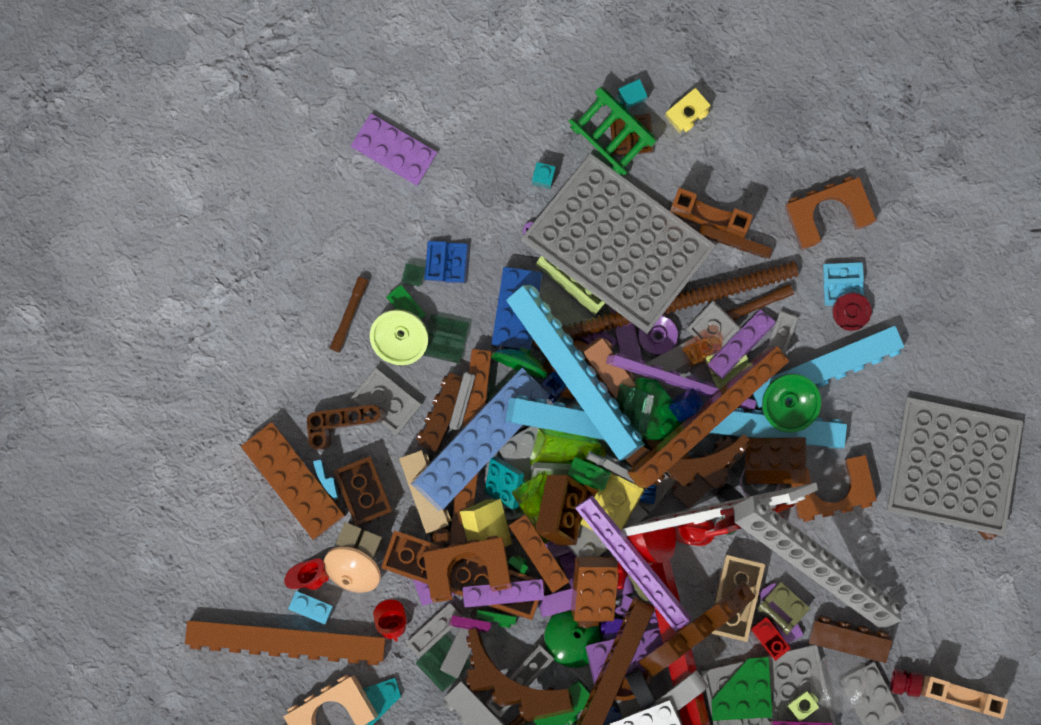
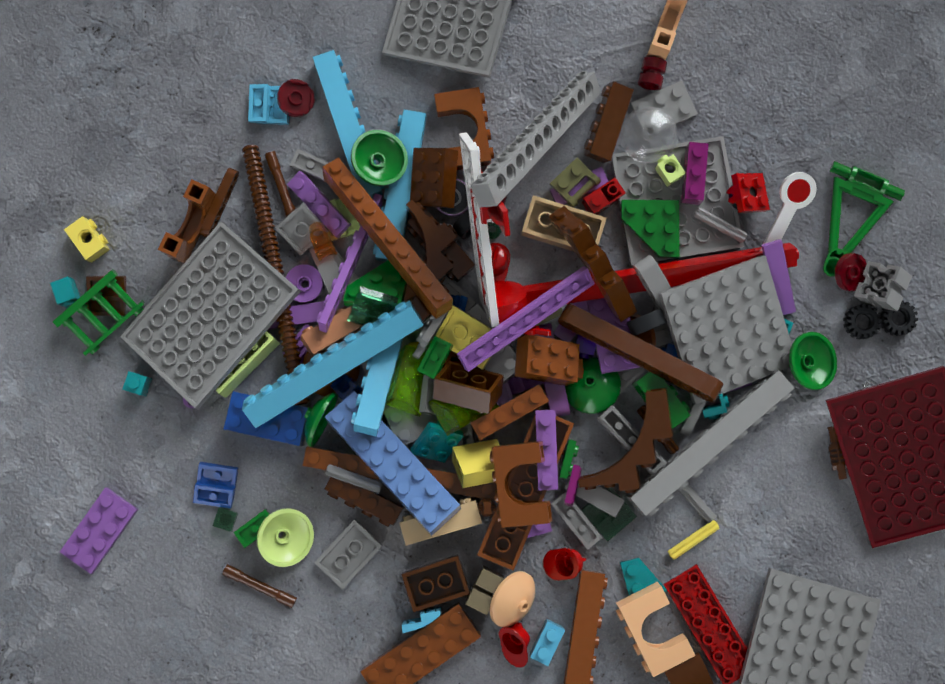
camera: 85 degrees left, 0 degrees up
(345, 421) = (364, 596): reddish brown beam -> none
(446, 338) = (291, 490): clear green slope -> none
(518, 563) = (517, 432): green plate -> none
(686, 405) = (373, 258): clear blue brick -> none
(848, 193) = (182, 91): dark orange arch -> none

